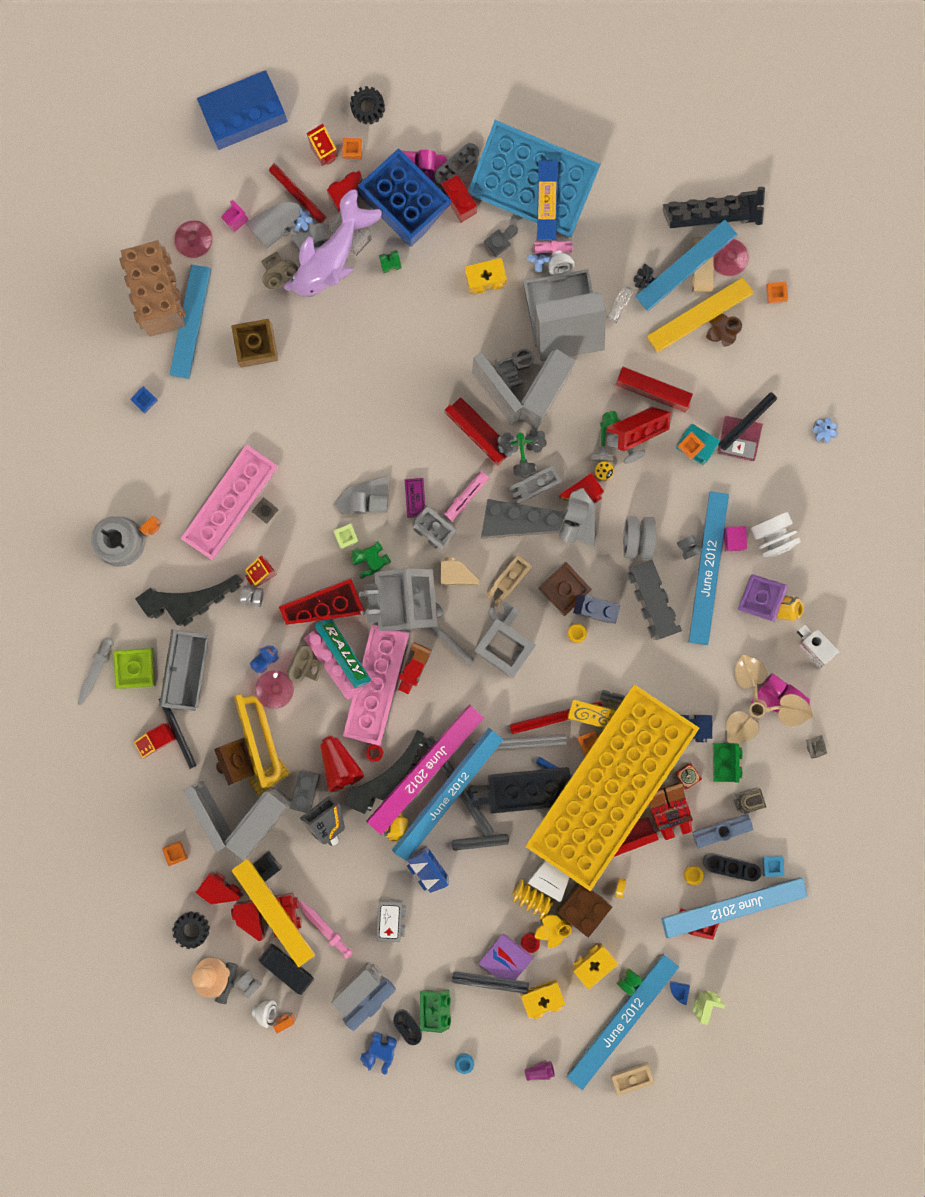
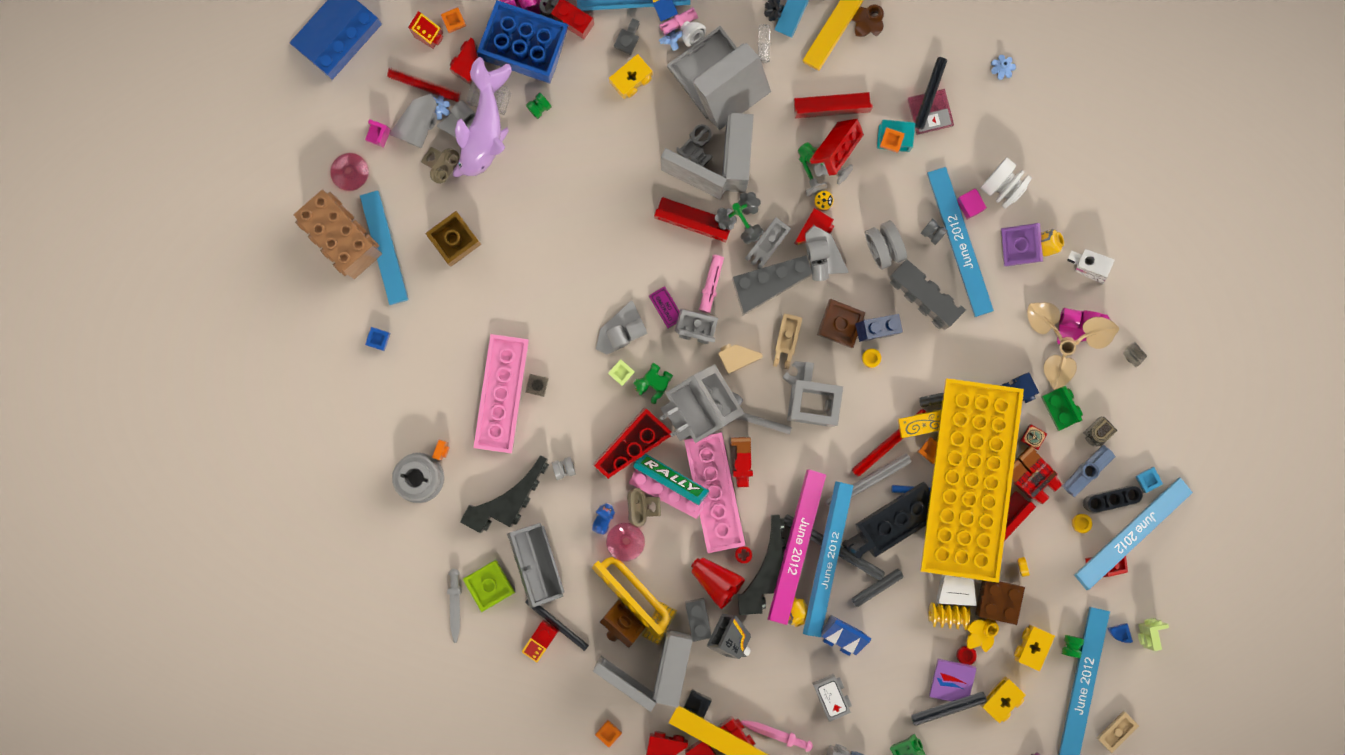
camera: 20 degrees left, 0 degrees up
(259, 571) = (560, 443): red slope -> none

